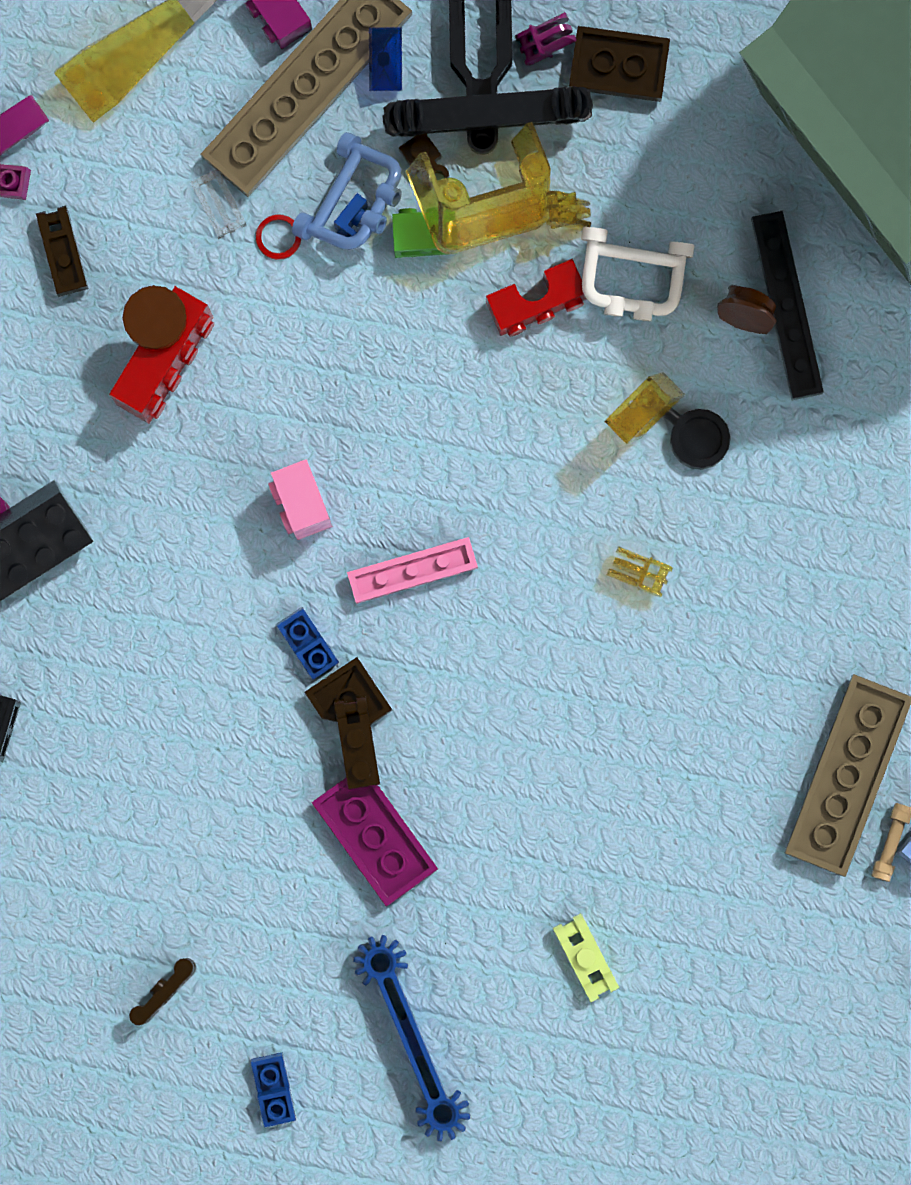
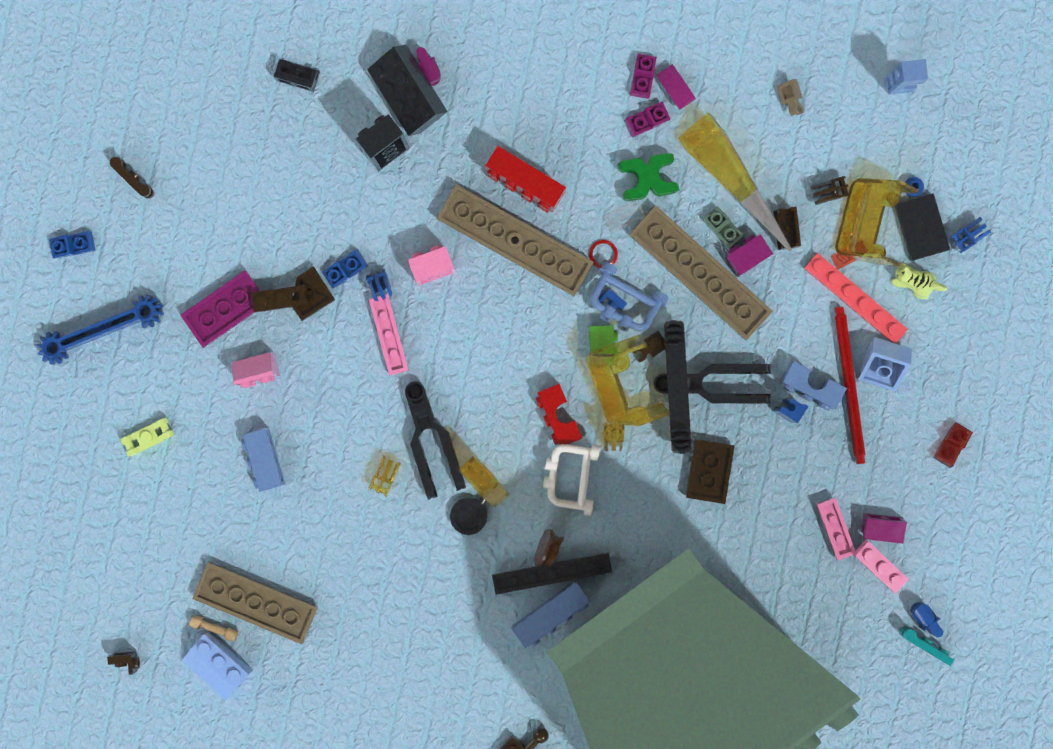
camera: 80 degrees right, 5 degrees up
(62, 252) = (595, 118): dark brown plate -> none
(64, 171) = (647, 119): none -> magenta slope
(104, 575) = (382, 142): none -> black brick
(154, 317) = (544, 174): reddish brown tile -> none
(156, 166) = (648, 177): none -> green piece
(235, 51) = (723, 227): none -> sand green slope
(244, 403) = (495, 230): none -> dark tan piece
(329, 586) = (378, 283): none -> blue arm
(385, 58) = (715, 322): clear blue tile -> none
(472, 780) = (255, 369): none -> bright pink slope
(546, 510) = (424, 419): none -> black piece
(547, 39) = (726, 423): magenta arm -> none
(618, 767) = (263, 459): none -> medium blue brick
(852, 305) = (550, 614): none -> medium blue brick

